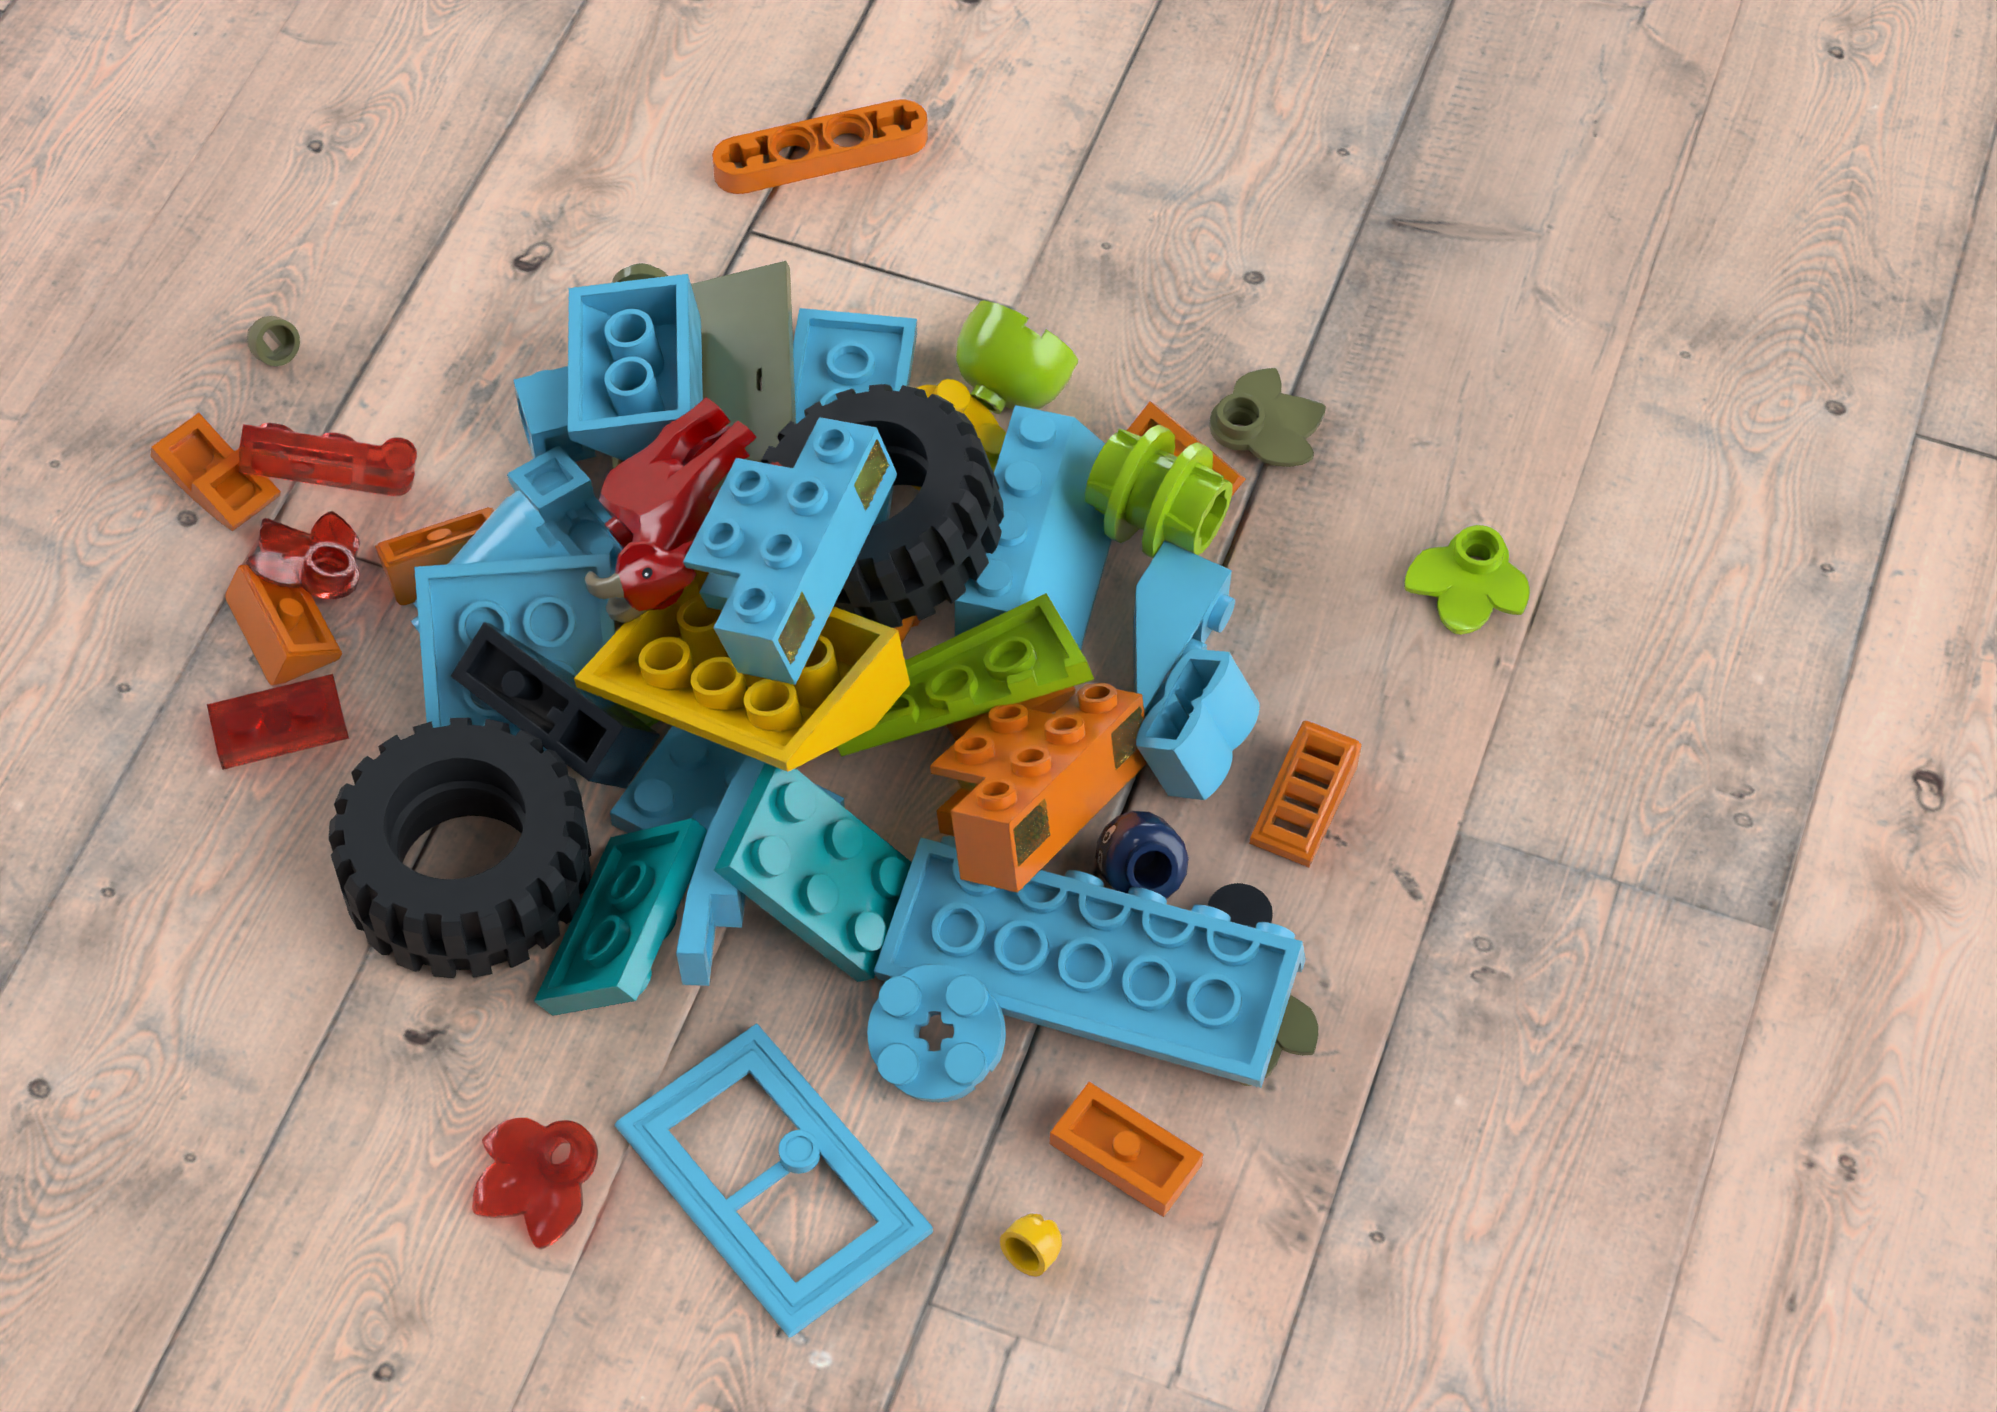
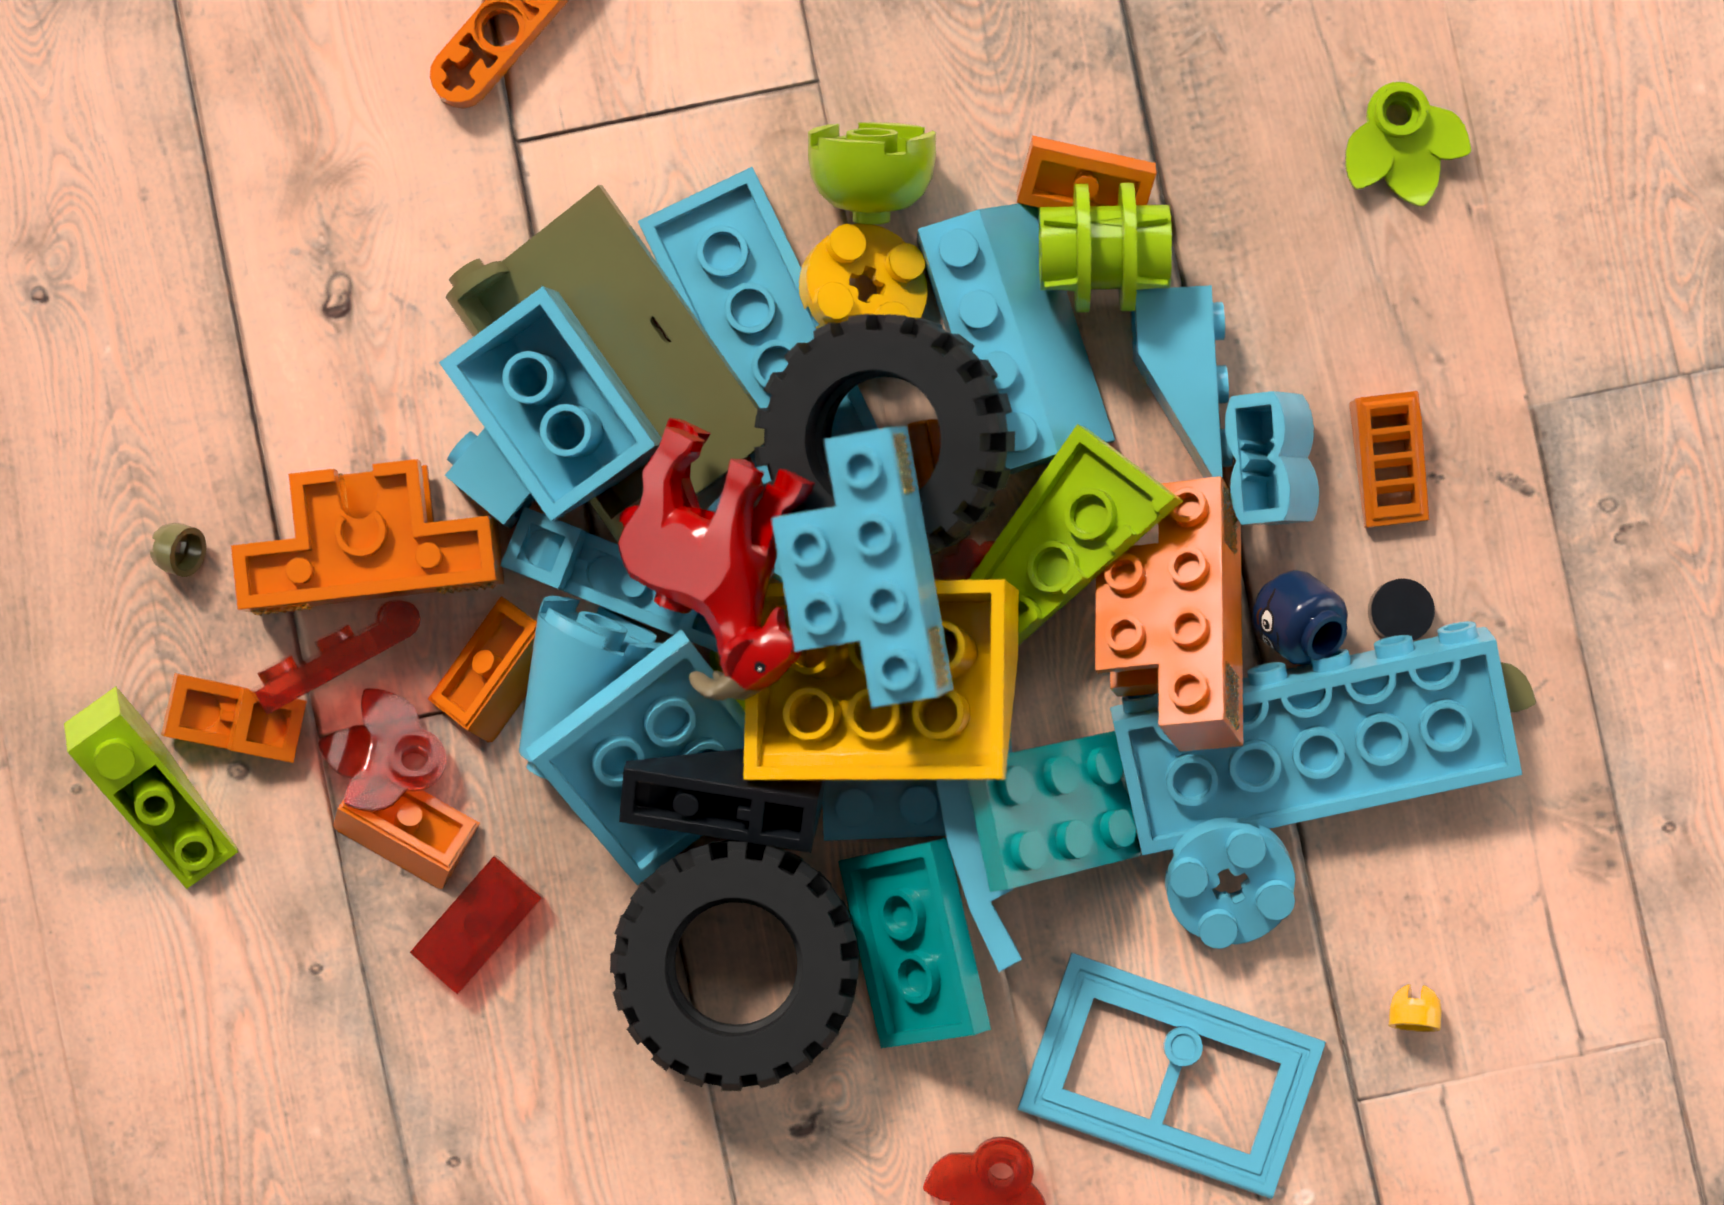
camera: 25 degrees left, 30 degrees up
(108, 477) = (147, 786): none -> lime slope
(409, 393) = (365, 542): none -> orange piece
(1126, 1149) = (1439, 885): orange plate -> none
(1272, 421) = (1135, 69): olive plate -> none

